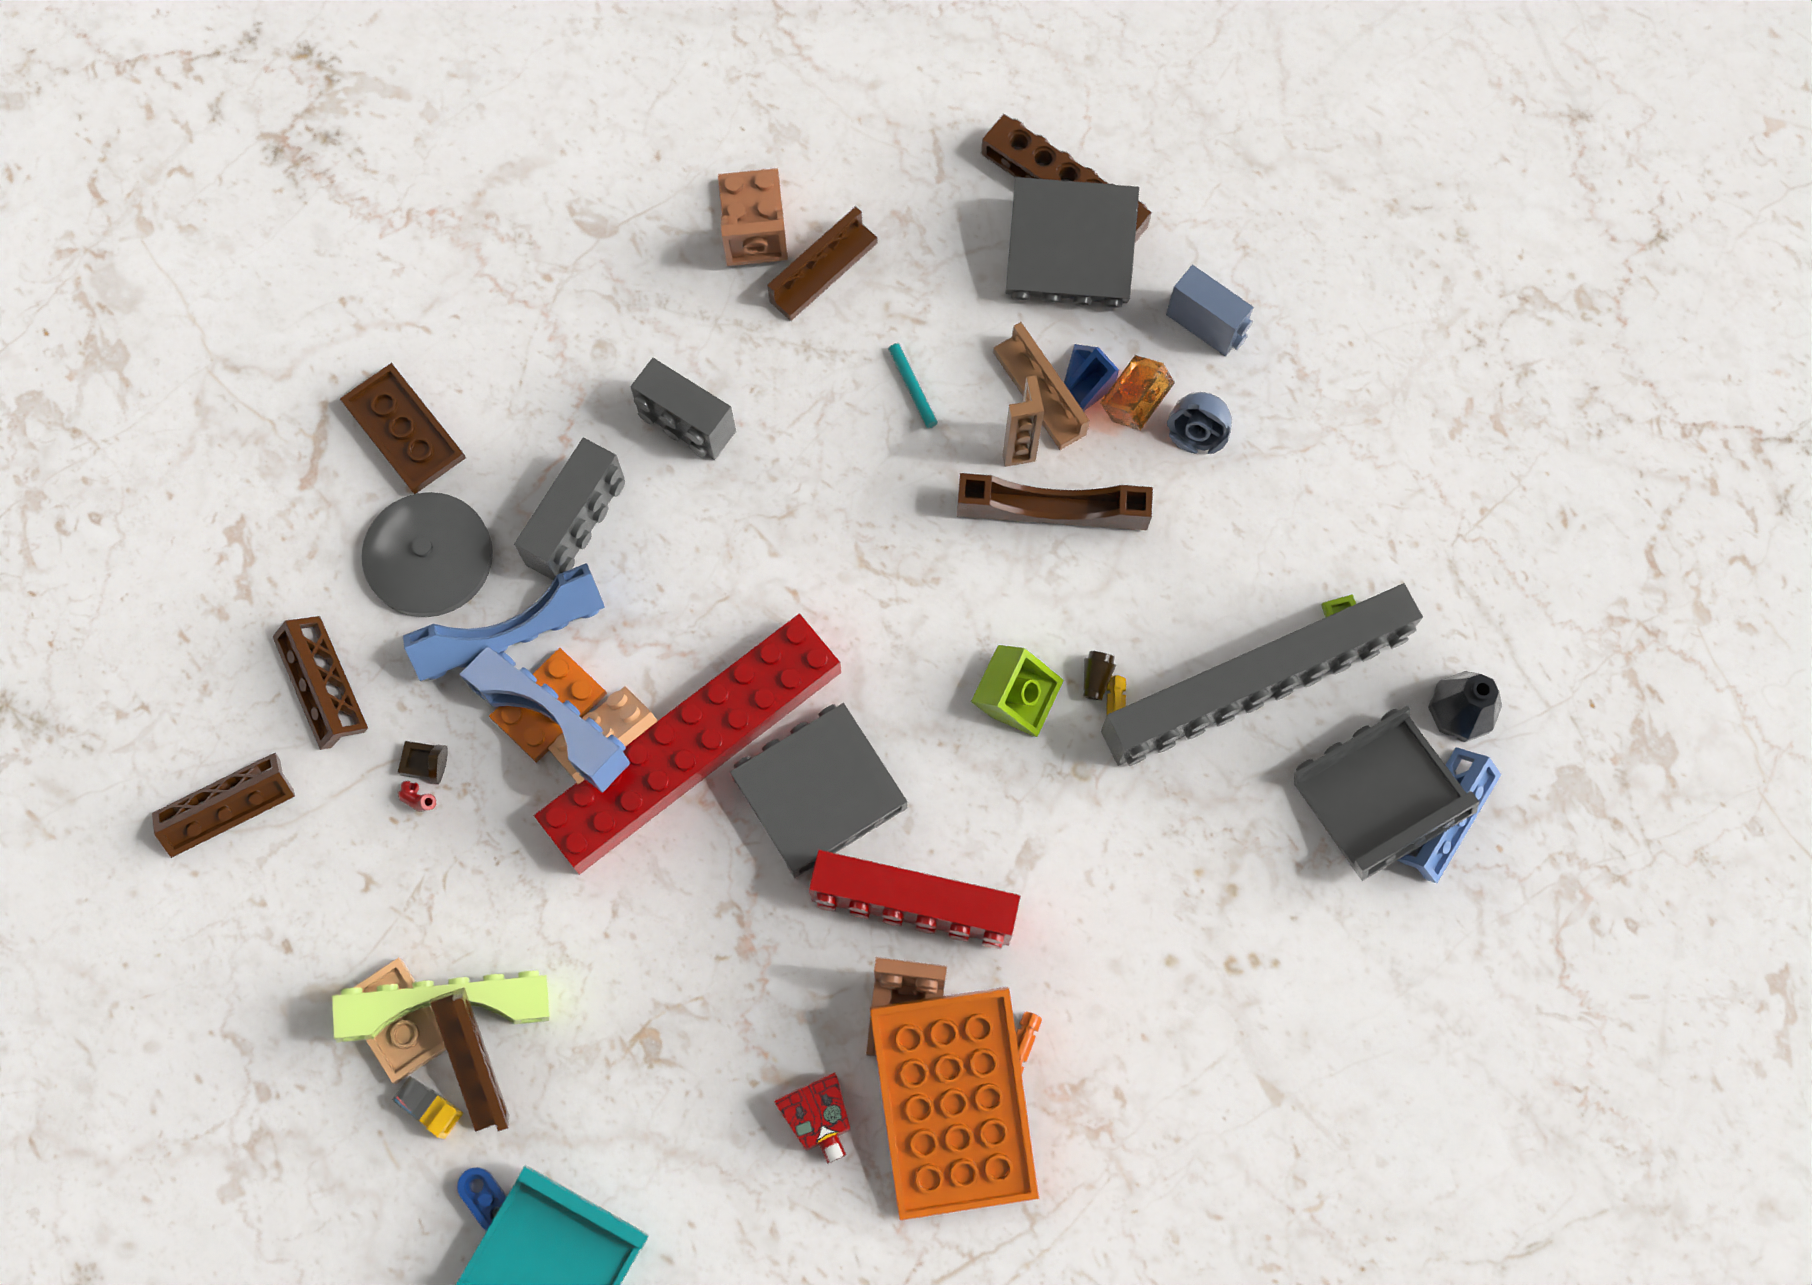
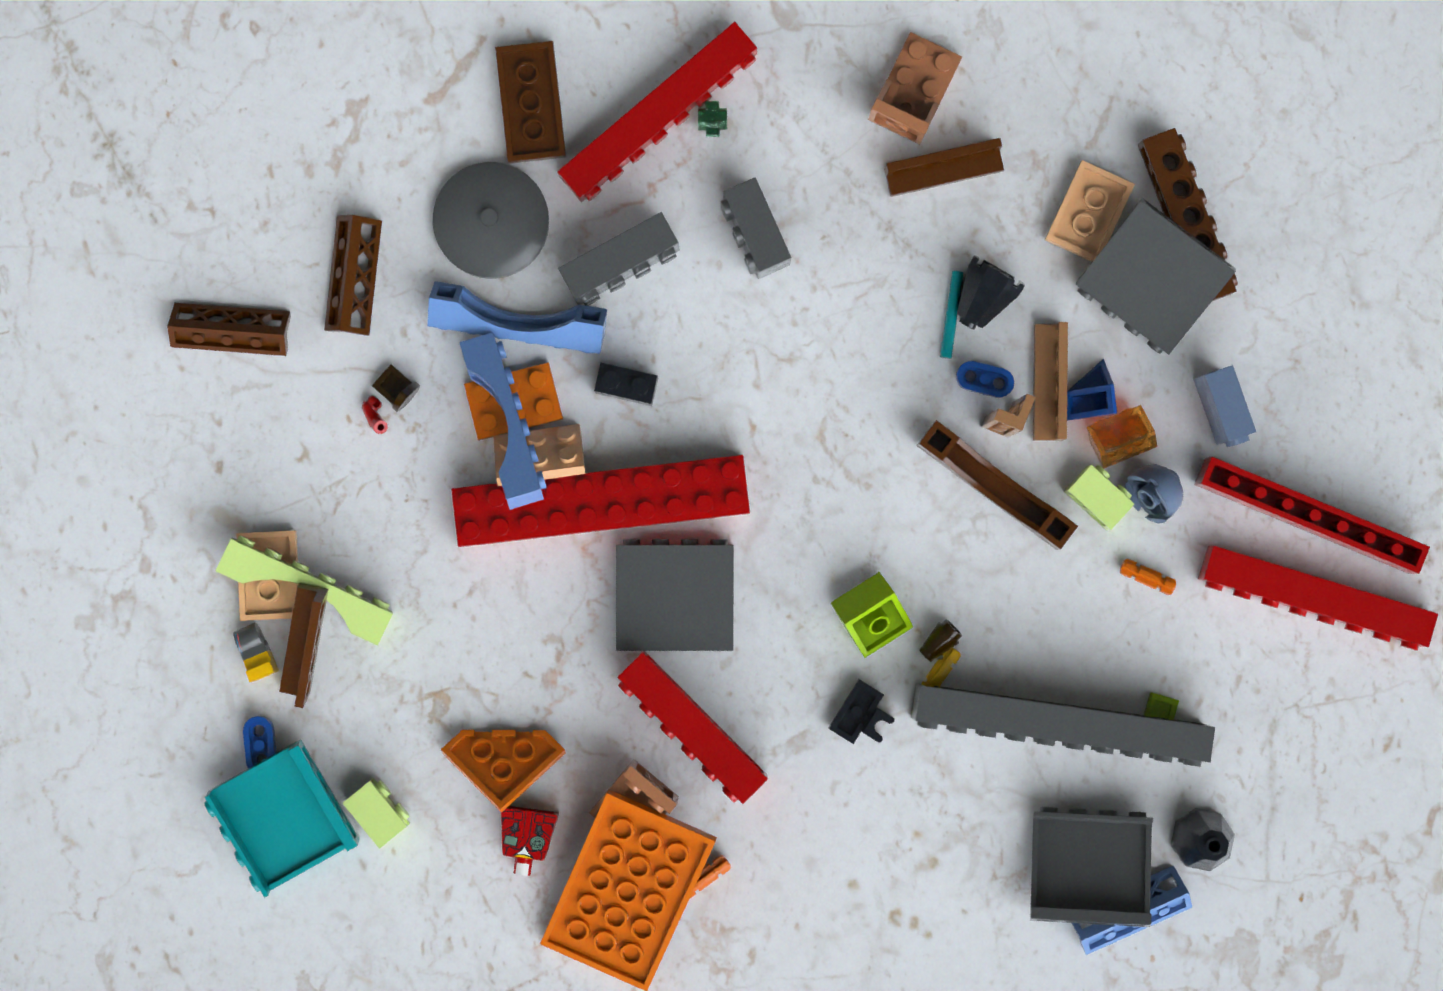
camera: 30 degrees right, 15 degrees up
(528, 370) = (658, 112): none -> red brick
(583, 344) = (712, 119): none -> clear green gear
(647, 621) = (626, 384): none -> black brick
(649, 1191) = (377, 812): none -> yellowish green brick
(747, 1056) = (503, 761): none -> orange plate
(930, 342) = (985, 293): none -> black cone
(976, 227) = (1089, 211): none -> light nougat plate
(979, 420) = (984, 379): none -> blue plate
(1069, 789) = (860, 714): none -> black plate
(1154, 458) = (1099, 496): none -> yellowish green brick
(1246, 502) = (1148, 577): none -> orange axle
(1352, 358) = (1312, 515): none -> red brick
(1408, 426) = (1317, 596): none -> red brick

